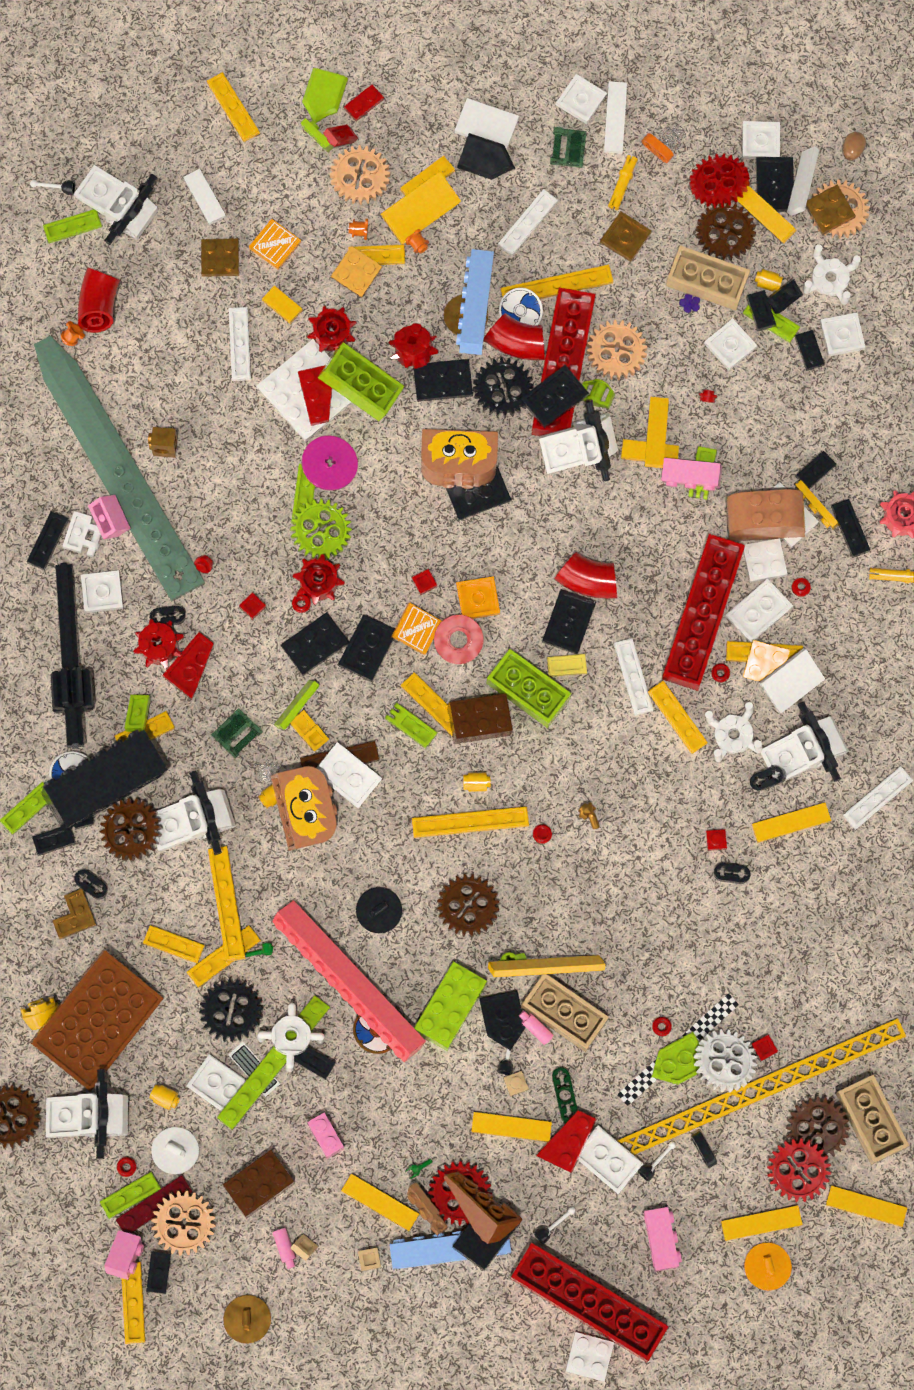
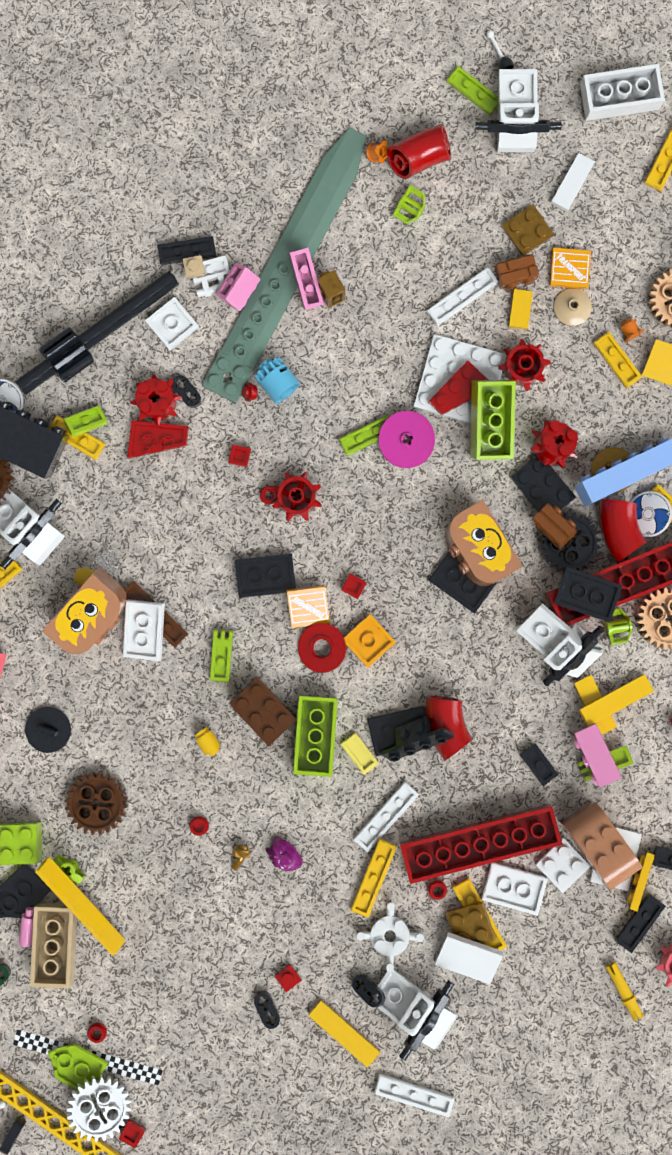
camera: 65 degrees right, 10 degrees up
(67, 542) = (194, 267): none -> tan plate
(130, 342) = (406, 199): none -> lime piece
(141, 457) = (306, 278): none -> bright pink brick
(158, 111) = (622, 92): none -> white brick
(208, 534) = (276, 379): none -> medium azure gear
(232, 729) = (125, 508): clear green plate -> none
(249, 287) = (516, 271): none -> dark orange brick
(296, 705) = (177, 548): lime tile -> none
(309, 731) = (163, 572): yellow slope -> none
(311, 270) = (569, 315): none -> tan dish
(314, 644) = (241, 529): black plate -> none
(329, 543) = (350, 453): lime gear -> none
(356, 271) = (590, 352): plate -> none
(417, 242) = (652, 386): orange brick -> none
(428, 700) = (254, 655): yellow tile -> none
(470, 822) = (171, 758): yellow tile -> none
(481, 388) = (554, 525): none -> dark orange brick
(582, 607) = (414, 738): none -> black bracket
(612, 778) = (284, 855): none -> magenta hat
(669, 526) = (538, 764): none -> black plate
(801, 593) = (556, 906): red plate -> none

